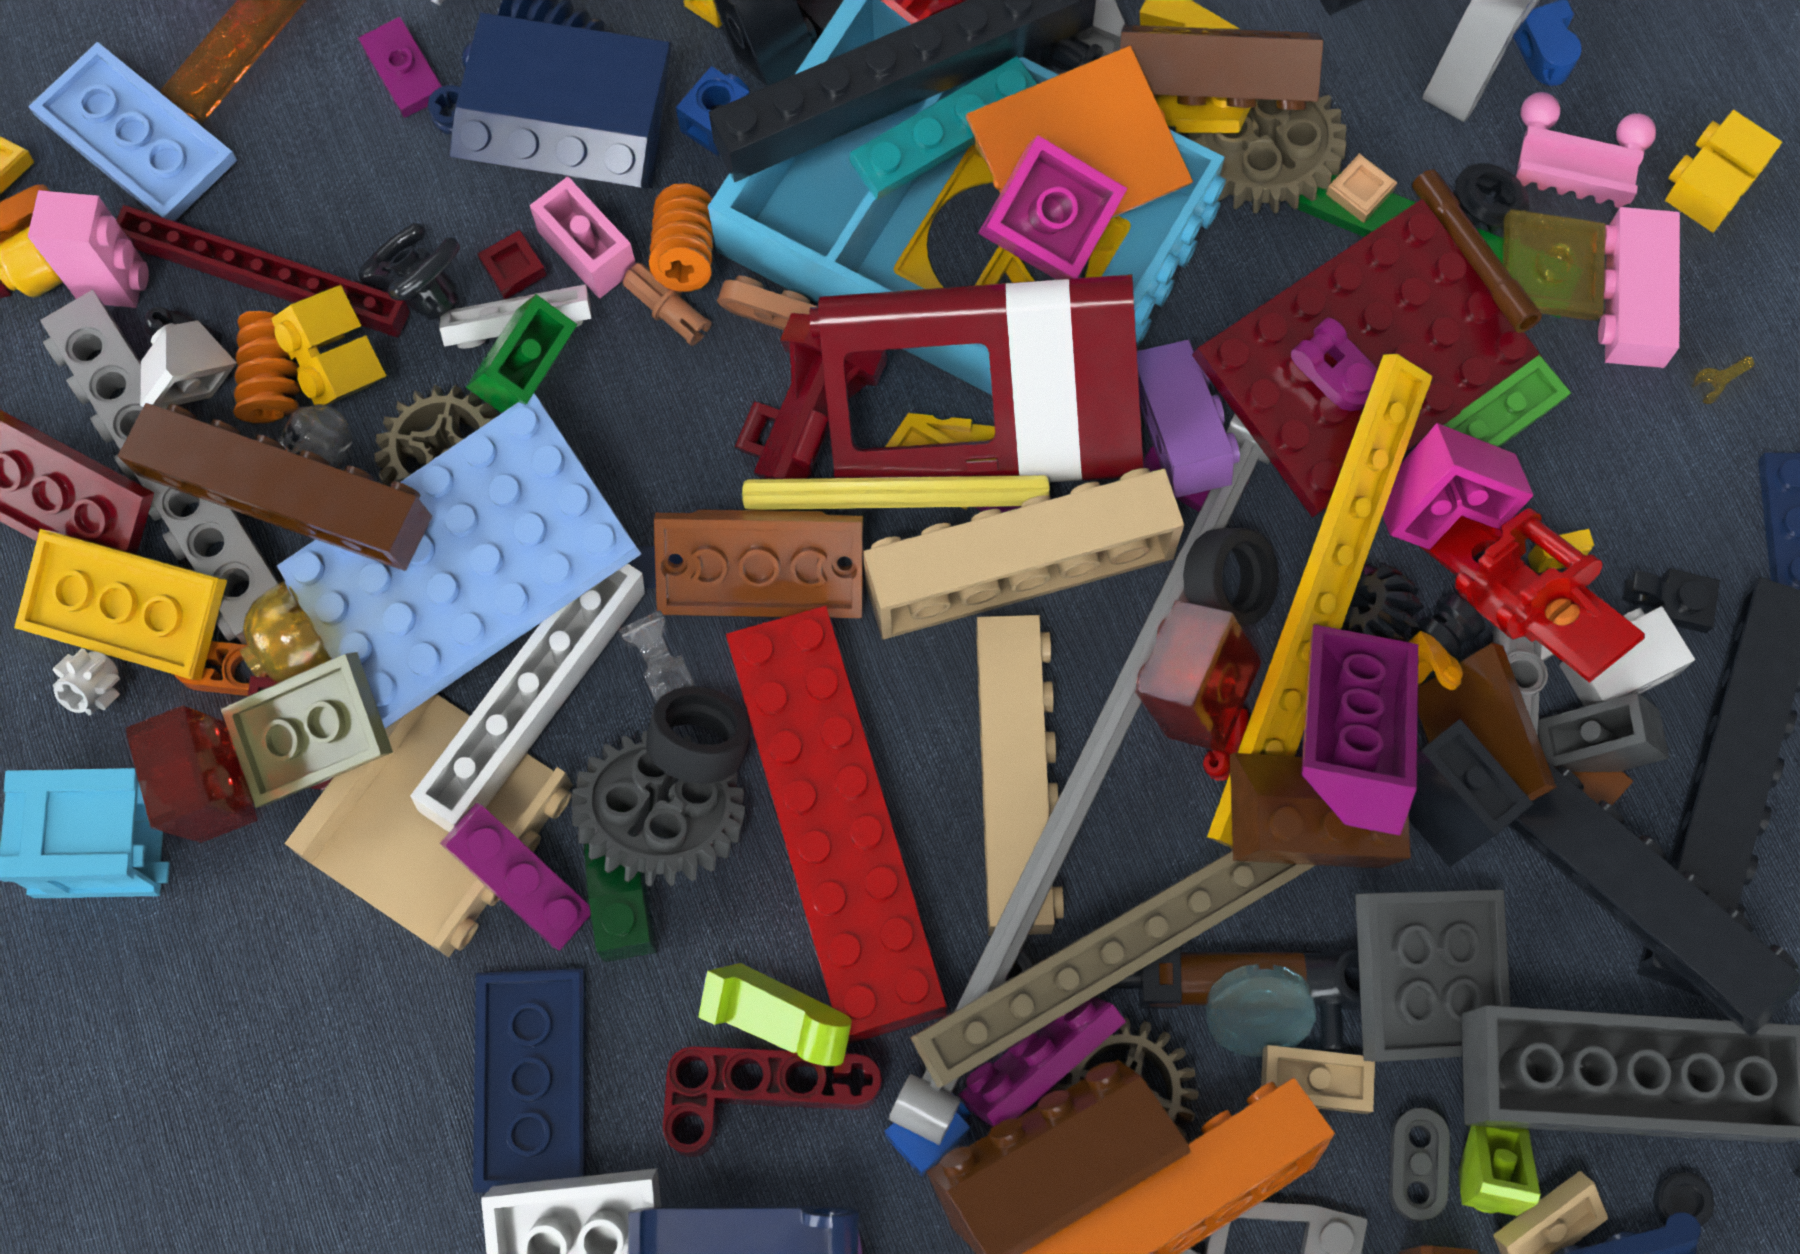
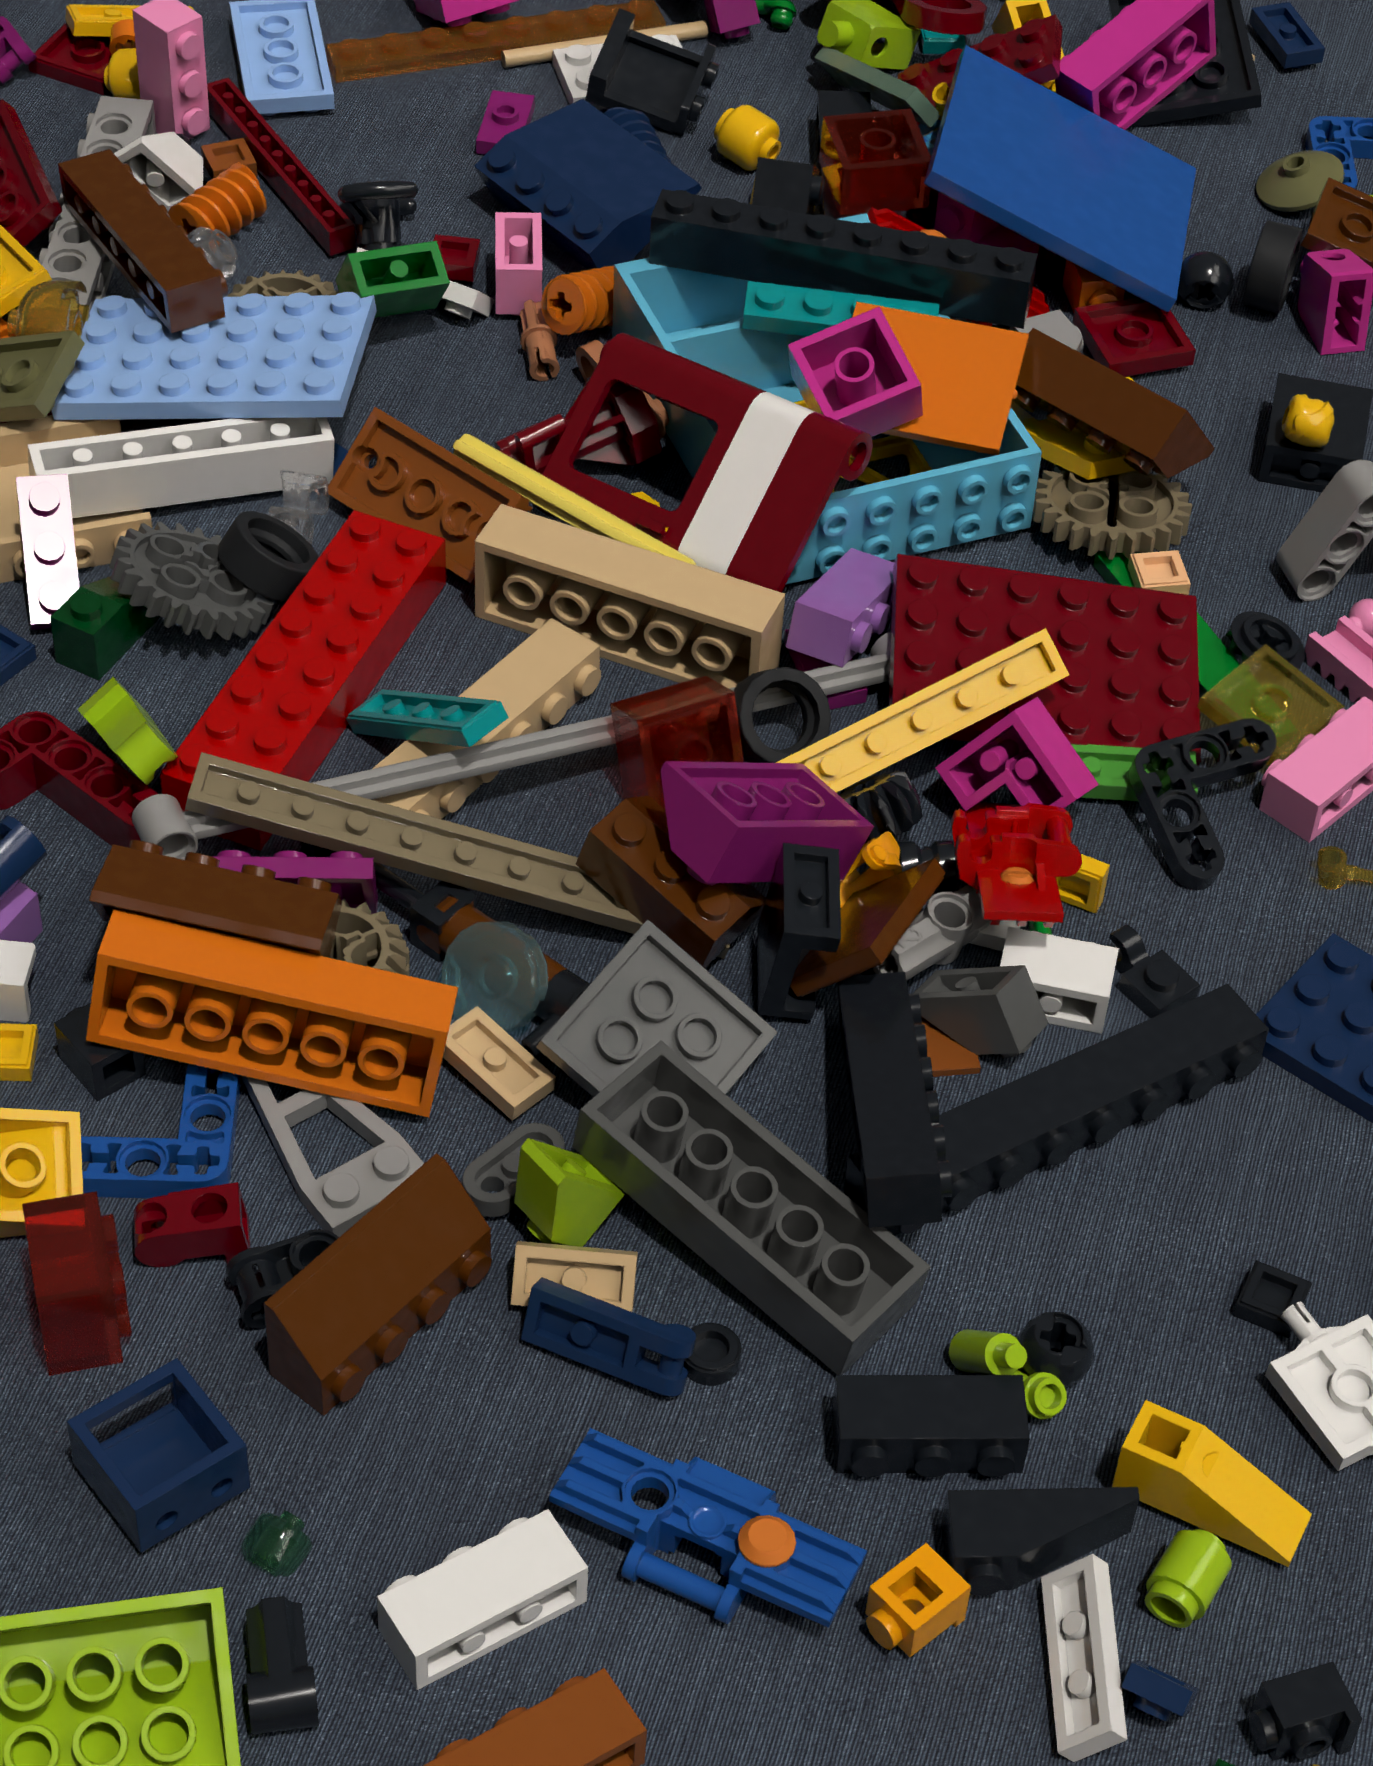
camera: 35 degrees right, 25 degrees down
(213, 299) = (224, 154): none -> dark orange plate
(319, 322) = (264, 219): yellow piece -> none
(992, 808) = (427, 717): none -> teal tile
(1349, 379) = (993, 637): magenta plate -> none
(1505, 290) = (1201, 679): reddish brown piece -> none
(1559, 395) = (1179, 784): none -> black beam

